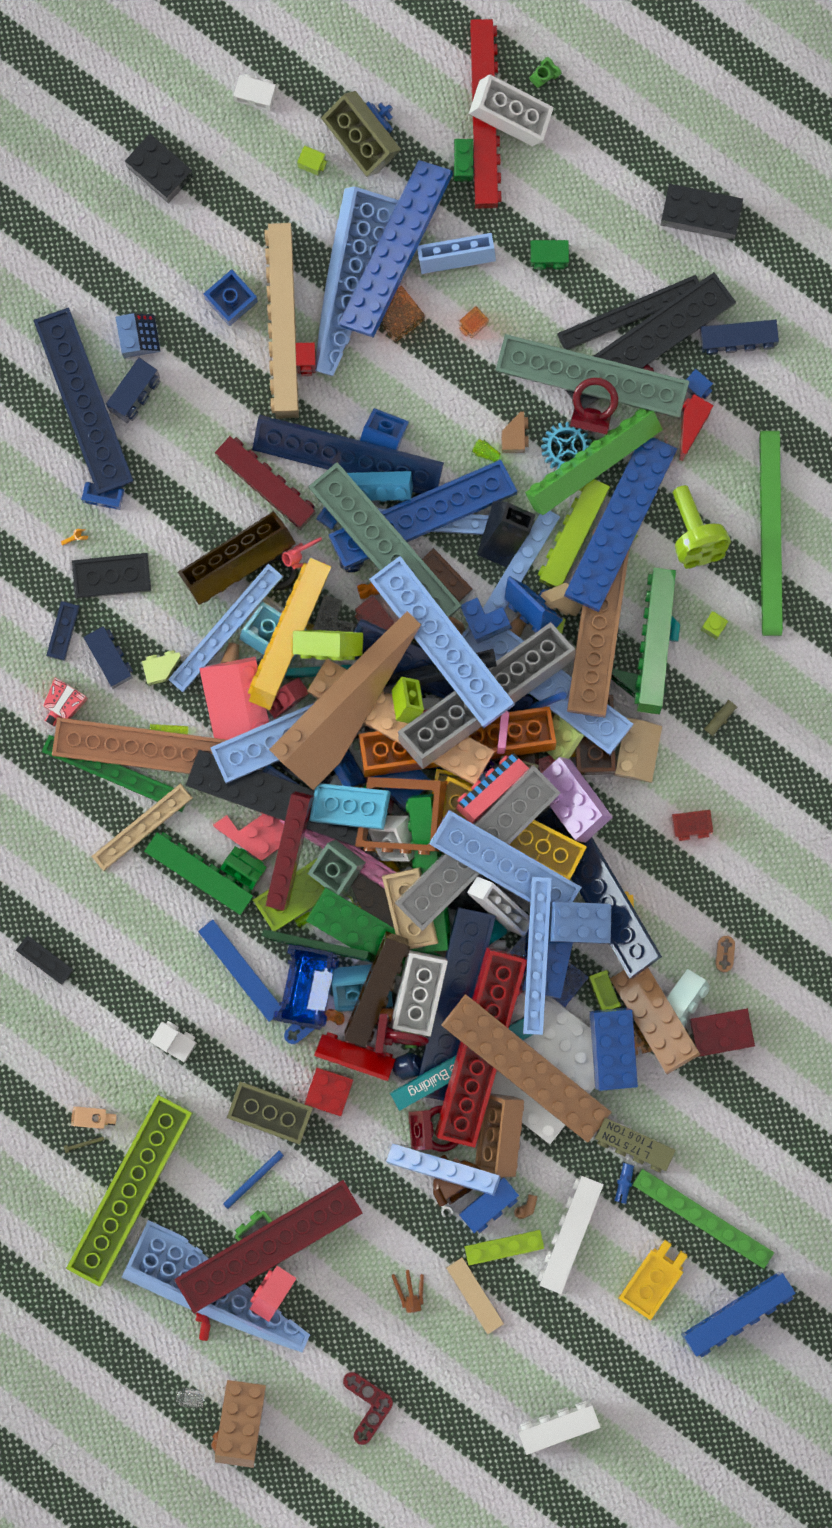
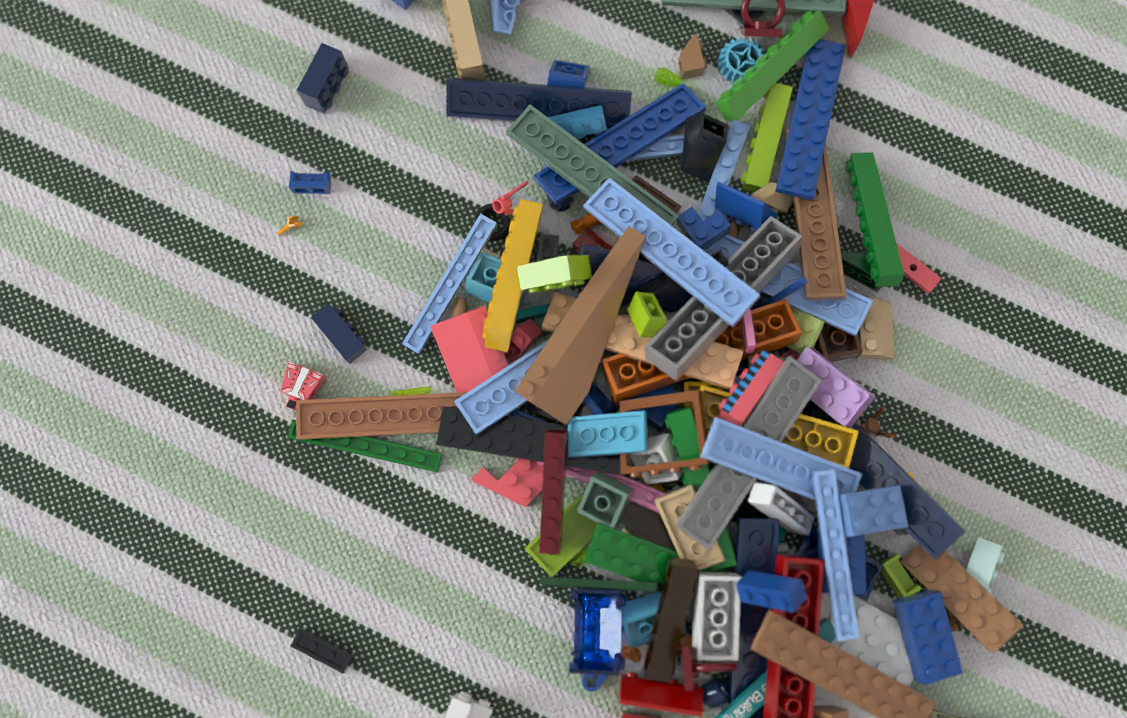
camera: 10 degrees left, 5 degrees down
(63, 631) = (291, 316): dark blue tile -> none
(83, 401) = (278, 99): dark blue plate -> none
(111, 575) = (330, 255): black tile -> none
(137, 334) = (319, 28): medium blue slope -> none
(142, 827) = (400, 495): tan tile -> none
(160, 668) = (392, 335): yellowish green slope -> none
(199, 874) = (464, 531): green brick -> none
(236, 558) = (449, 215): dark brown brick -> none
(240, 969) = (525, 623): blue tile -> none
(243, 867) = (509, 517): green brick -> none
(265, 483) = (464, 142): dark red brick -> none
(305, 358) = (482, 21): red brick -> none
(326, 519) = (530, 164): blue tile -> none
(469, 977) = (771, 591): none -> blue brick
(613, 844) = (872, 426): none -> dark orange plant
(681, 686) = (922, 275): none -> coral tile
(692, 824) = (945, 391): clear red brick -> none
(701, 542) = (893, 120): lime piece -> none
(714, 625) = (920, 198): lime brick -> none
(720, 718) = (946, 284): olive pin -> none
(720, 953) = (1008, 515): medium nougat beam -> none
(722, 1032) = (1030, 594): dark red brick -> none
(770, 533) = (952, 106): bright green beam -> none

